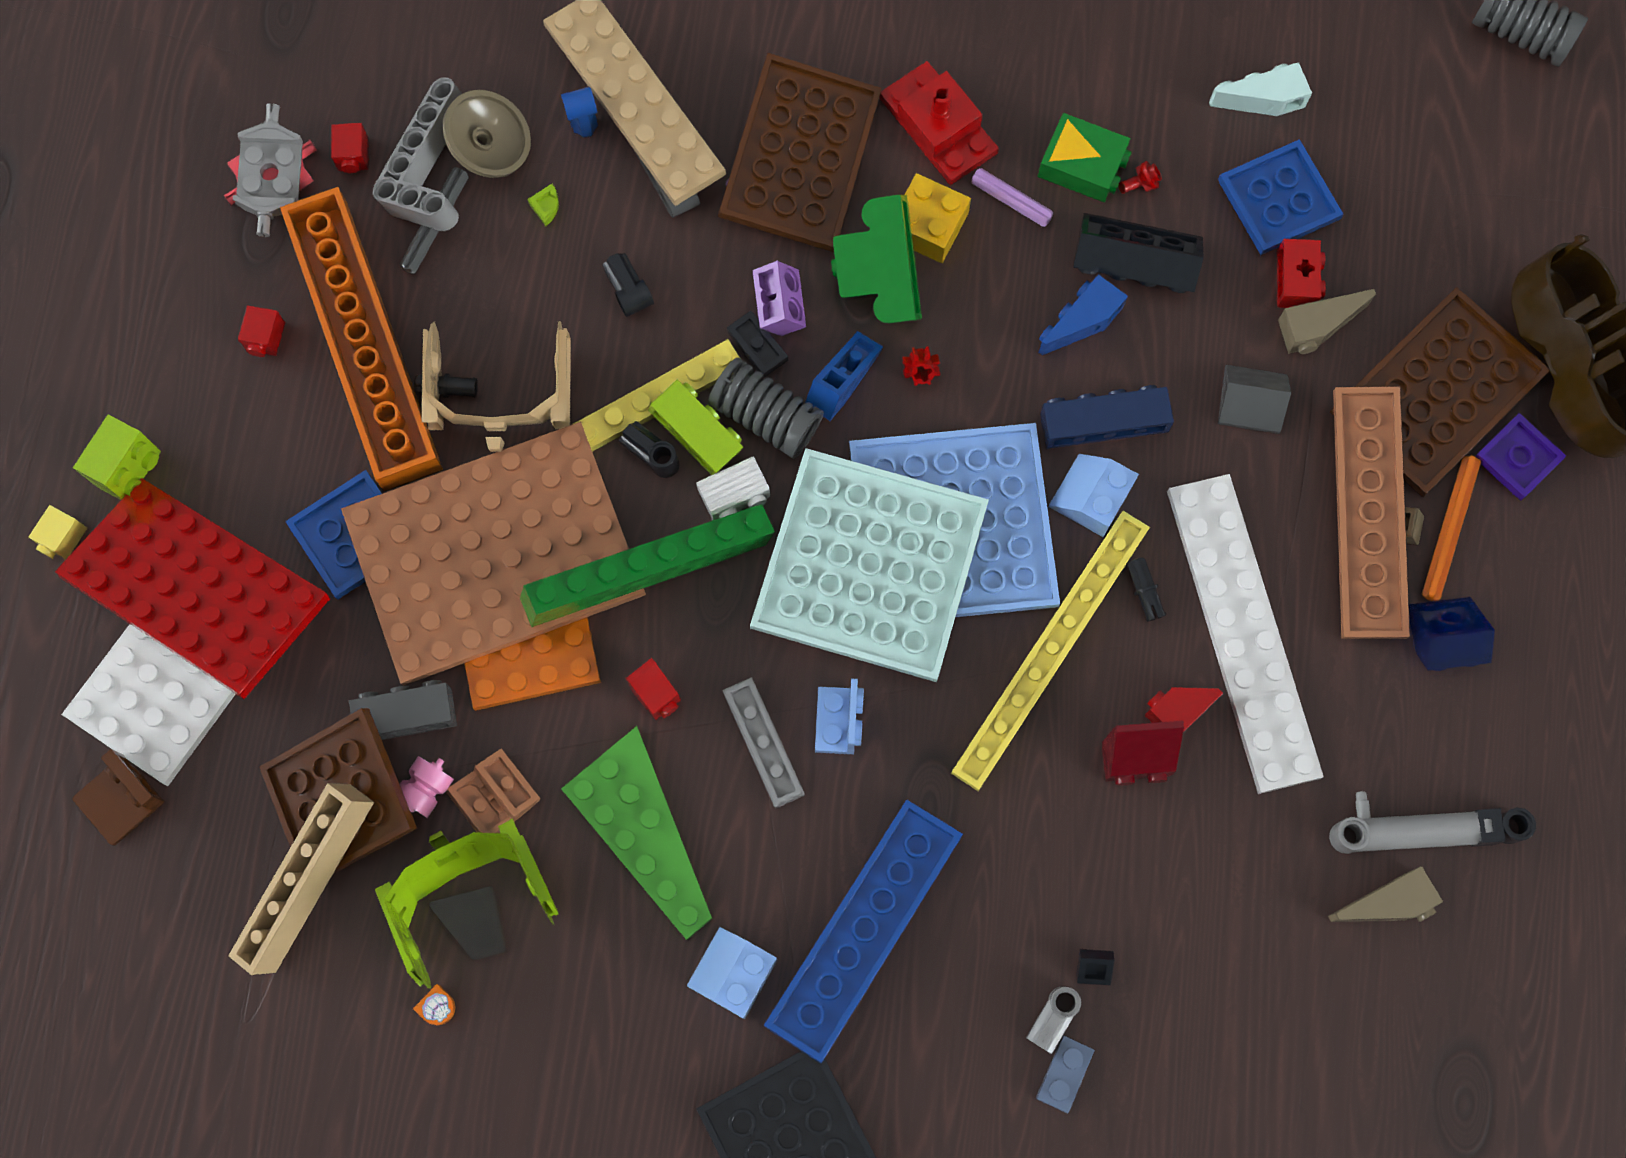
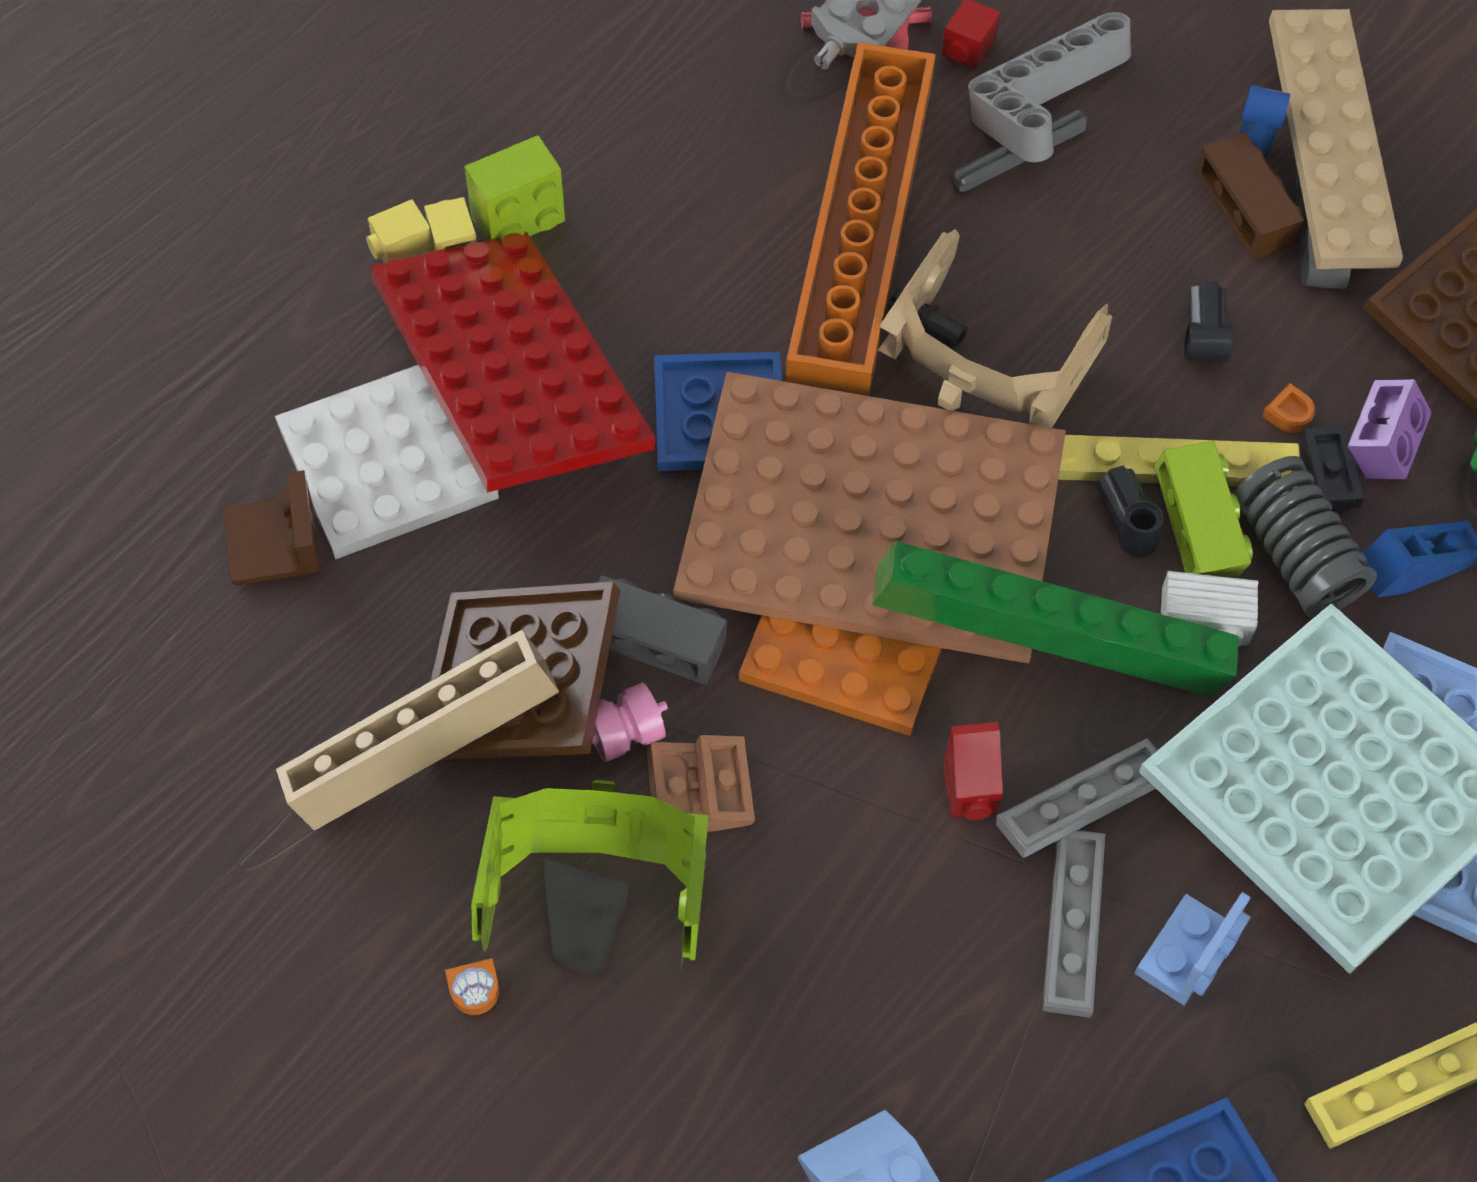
camera: 30 degrees right, 15 degrees down
(87, 506) = (450, 224): none -> light yellow brick
(261, 331) = (755, 157): red brick -> none
(494, 122) = (1136, 90): dark tan dish -> none
(545, 204) = (1158, 198): lime tile -> none
(603, 169) = (1250, 196): none -> reddish brown brick
(632, 816) = (854, 912): bright green wing -> none
(711, 315) = (1290, 410): none -> orange tile
(724, 666) = (1077, 800): none -> light grey tile

